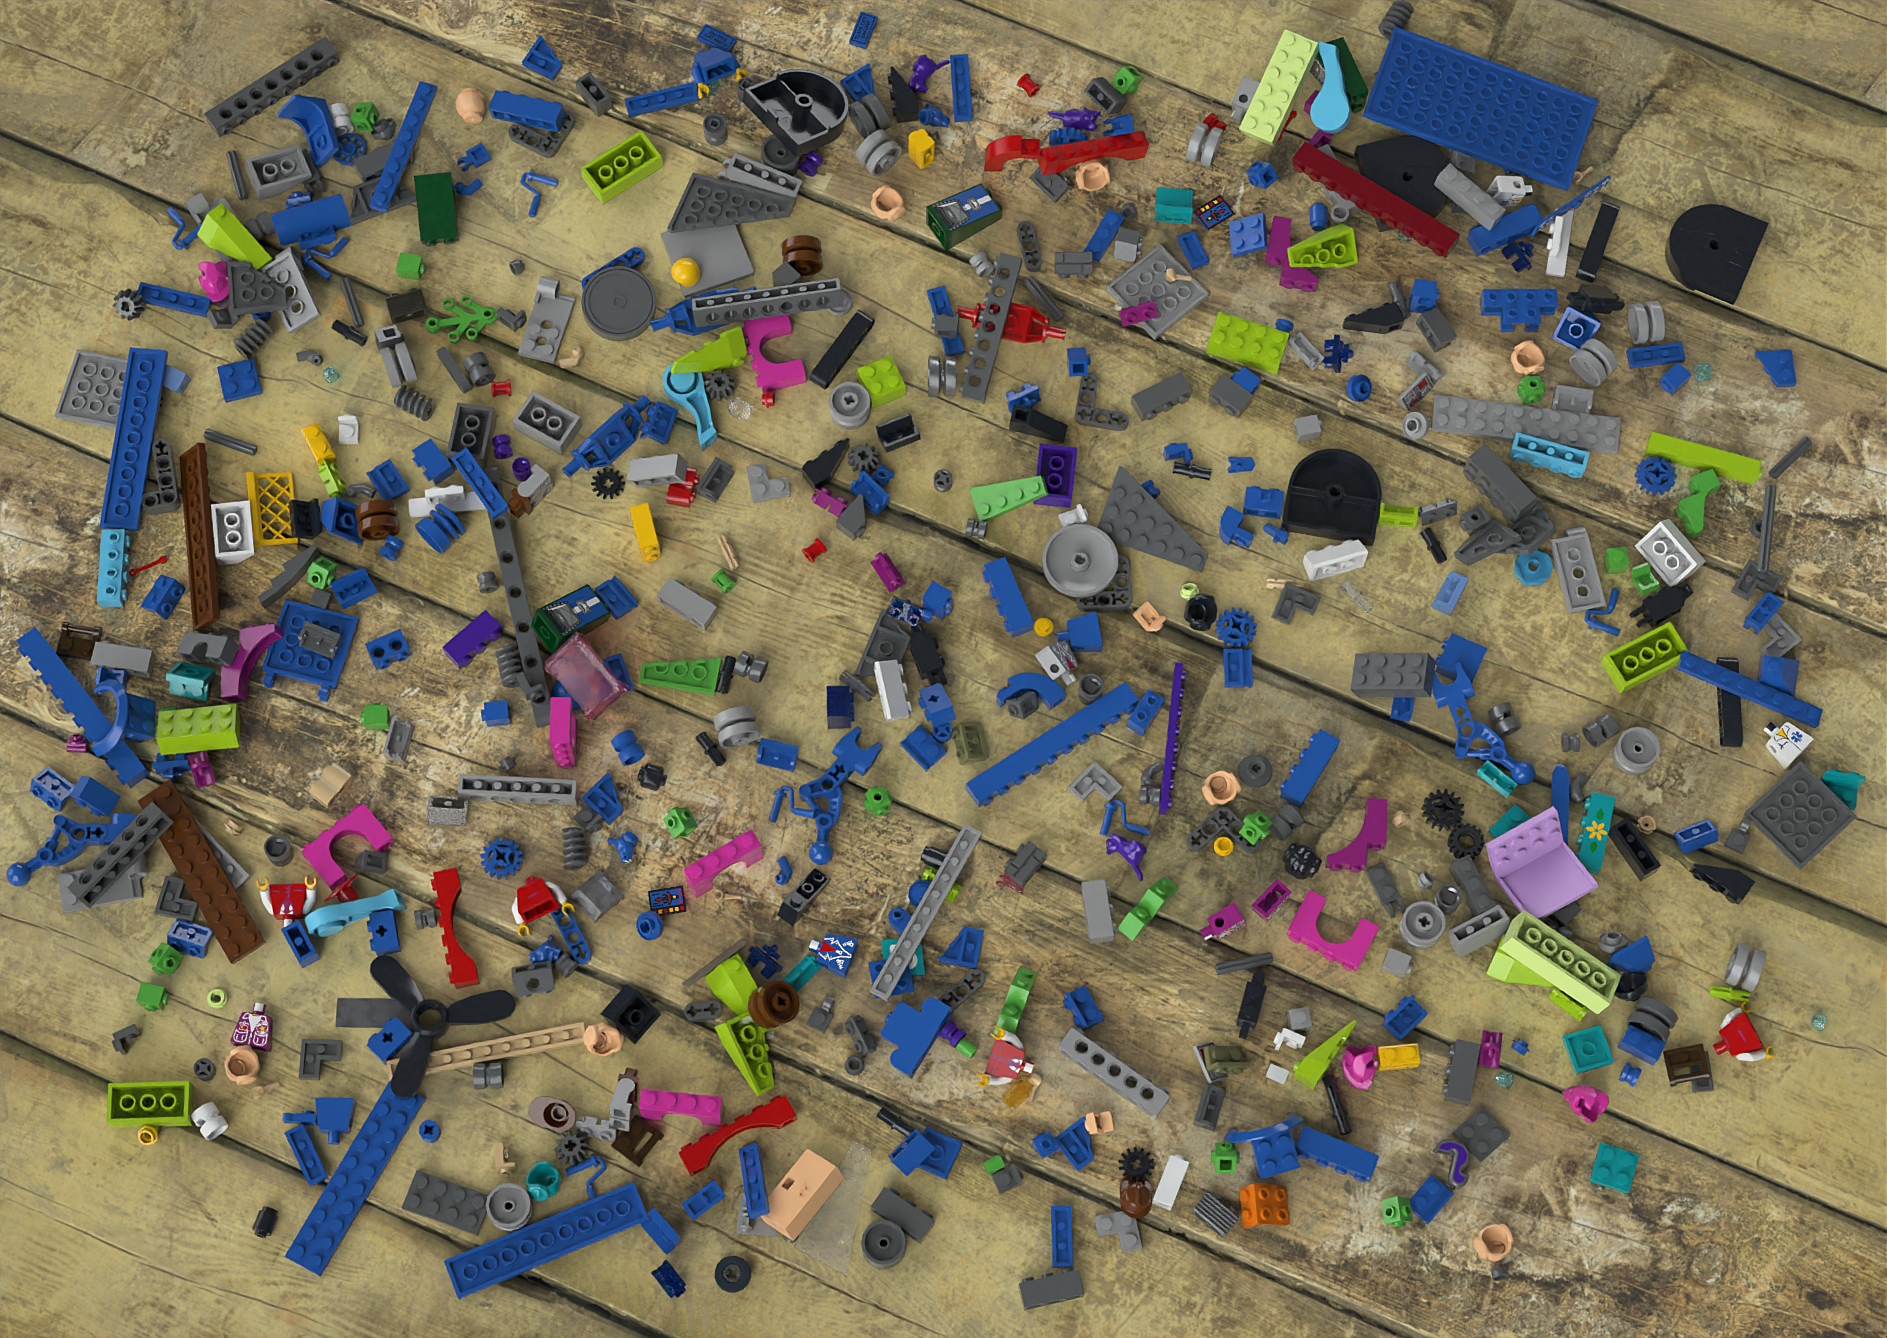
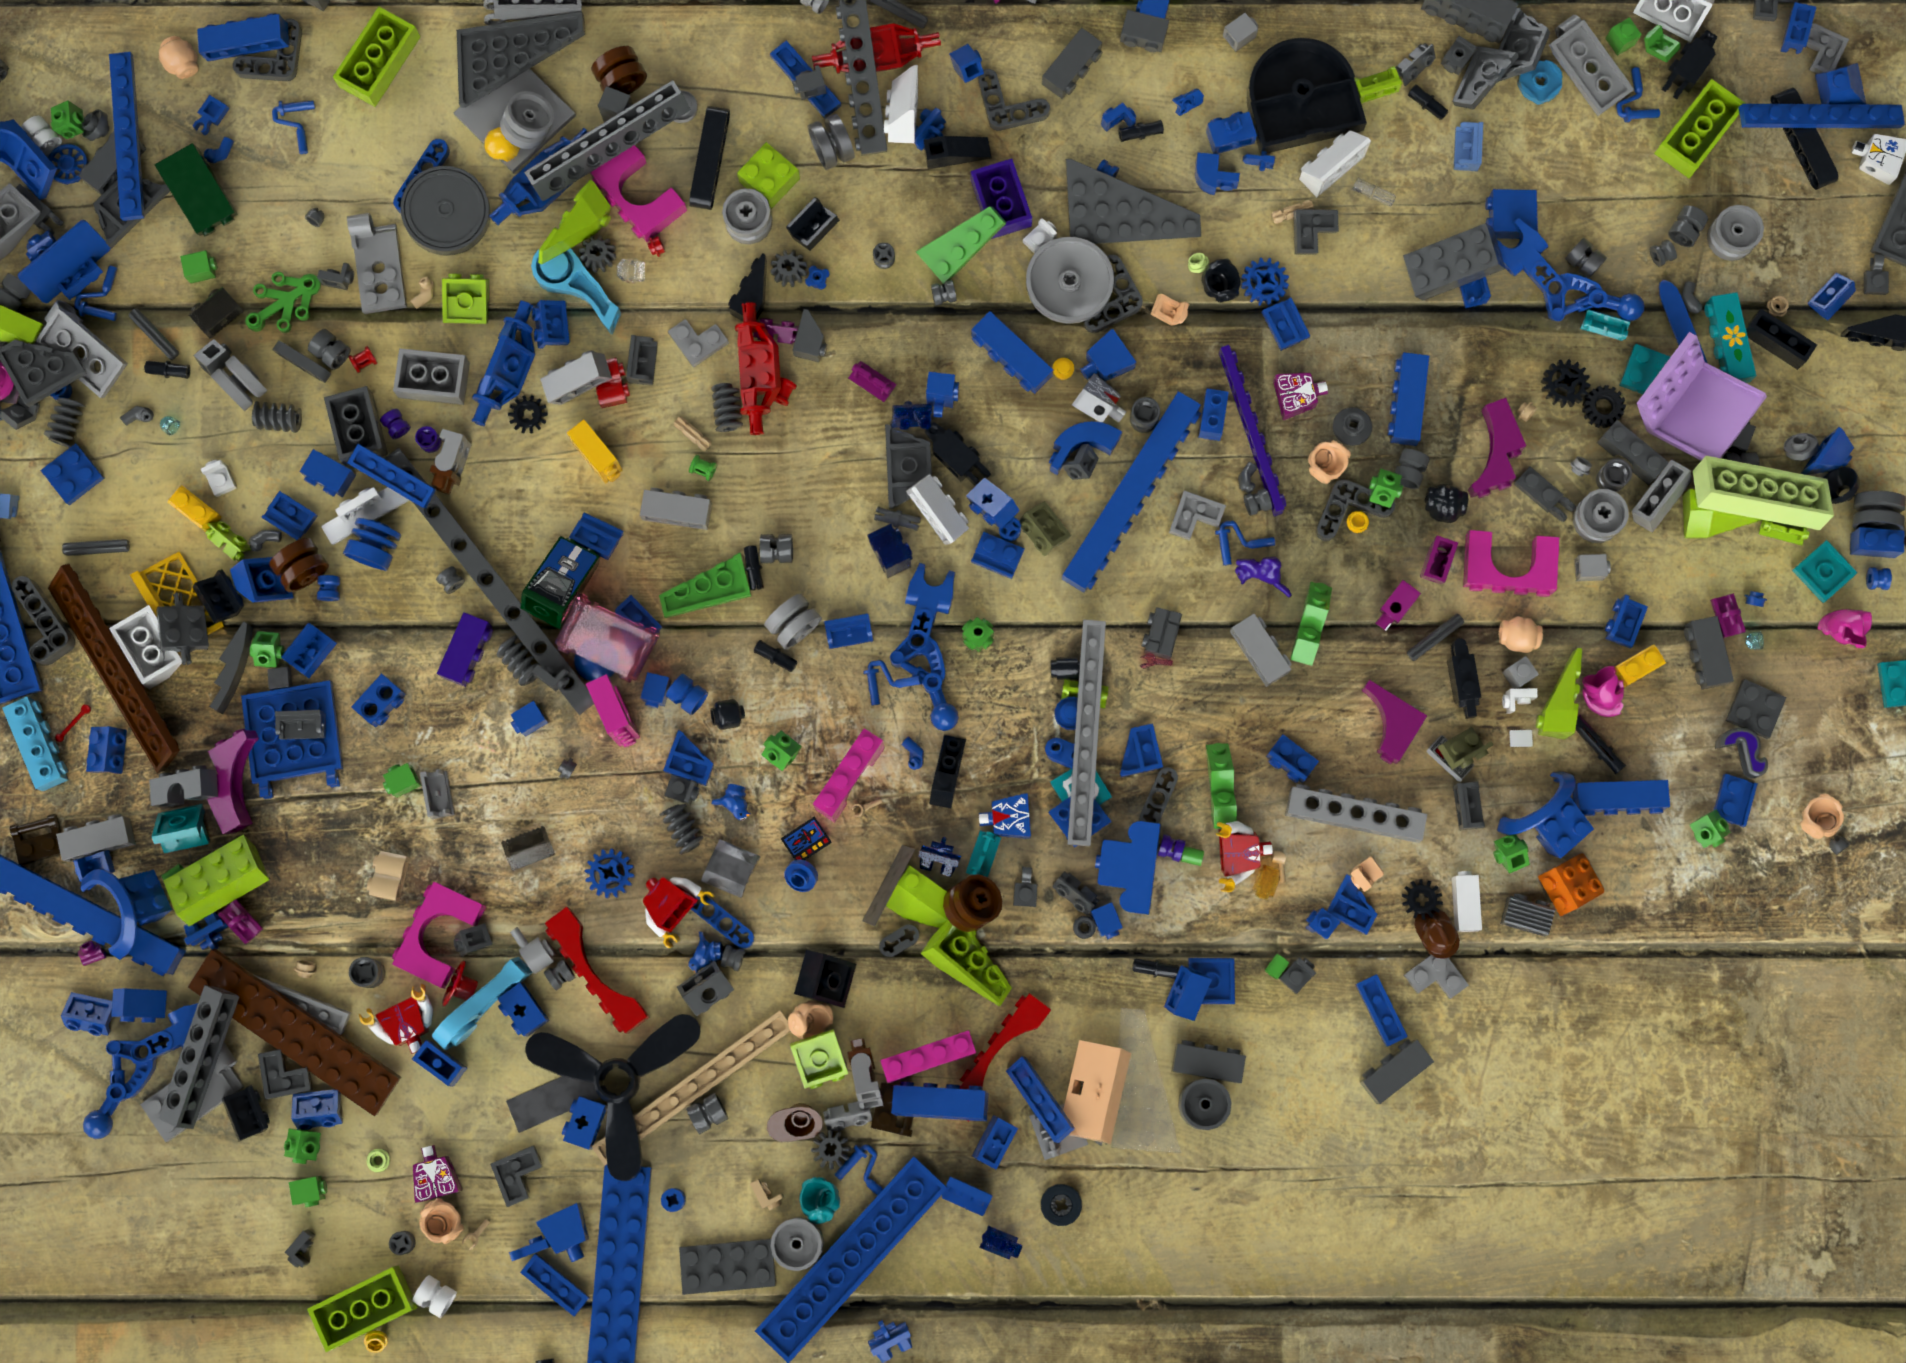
camera: 20 degrees left, 10 degrees up
(134, 916) = (246, 1113): none -> black bracket
(266, 529) = (182, 628): none -> dark grey plate
(415, 894) = (536, 953): none -> light grey piece
(518, 789) = (592, 792): light grey brick -> none
(556, 1317) = (887, 1337): none -> blue hips
(595, 1072) = (819, 1059): none -> lime plate
(601, 376) = (465, 299): none -> lime plate
(604, 733) = (655, 690): none -> blue brick
(672, 1146) = (940, 1102): none -> blue brick
(713, 261) = (527, 120): none -> light grey wheel
(763, 543) = (726, 407): none -> dark grey piece
(802, 523) = (757, 367): none -> red plate
(873, 495) = (819, 304): blue hinge -> none
(874, 1067) = (1106, 921): none -> blue brick
(1010, 374) = (902, 107): none -> white slope
(1183, 1018) = (1399, 722): none -> magenta arch
(1221, 725) = (1297, 393): none -> magenta torso
(1313, 990) = (1520, 634): none -> light nougat hair

